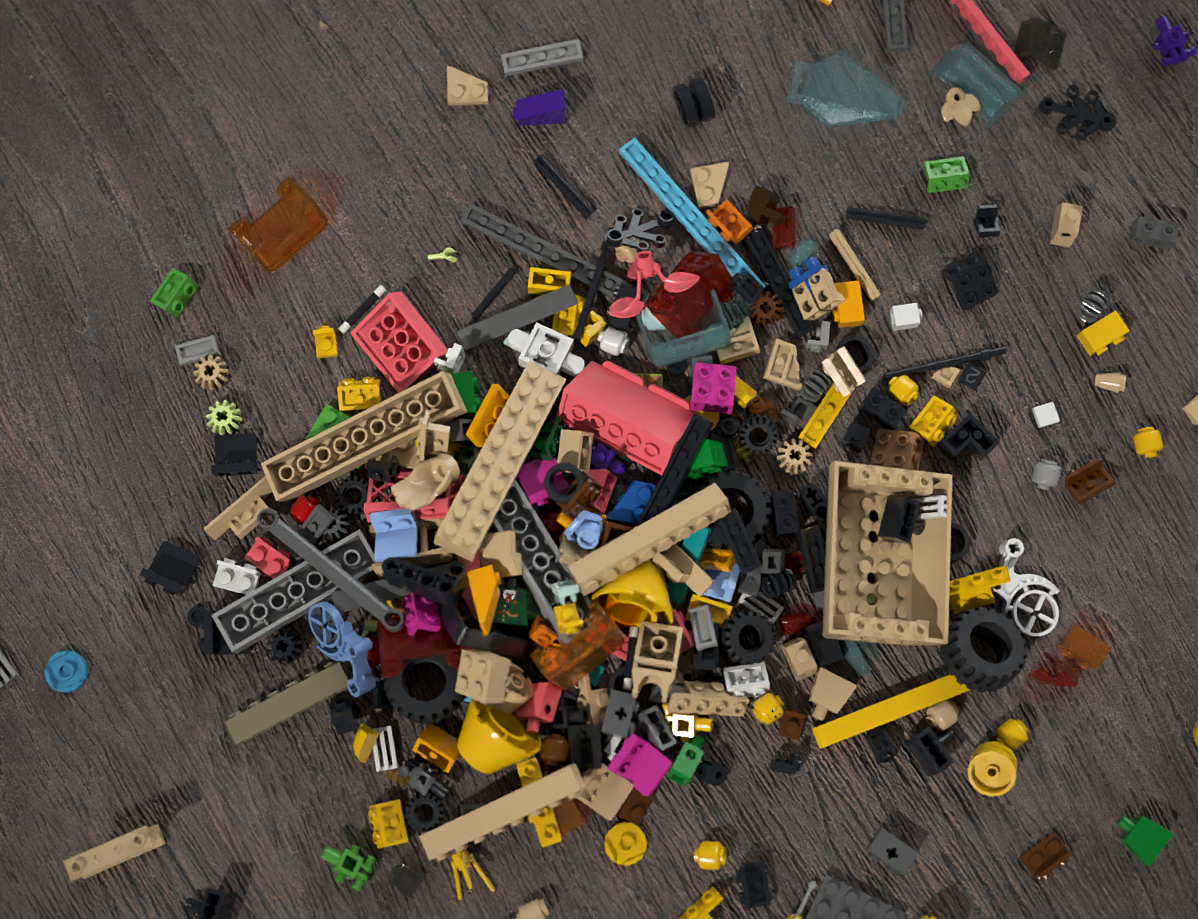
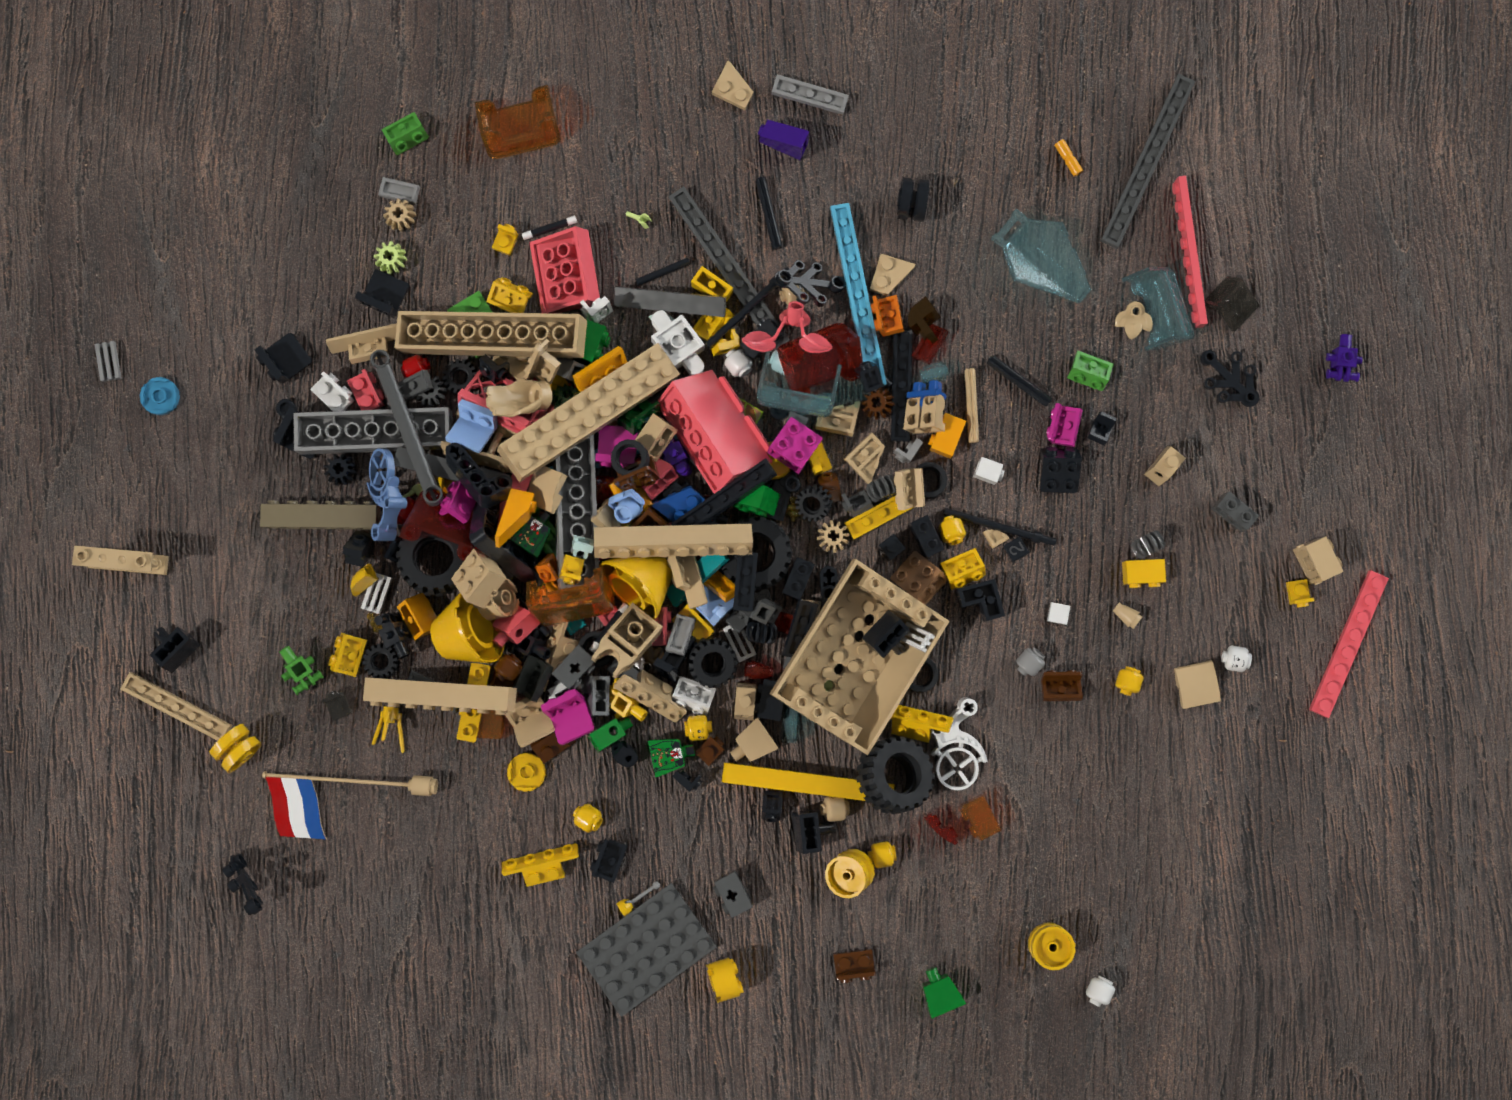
camera: 25 degrees right, 5 degrees up
(755, 750) = (668, 755): none -> torso
(951, 237) = (1064, 425): none -> dark pink bracket

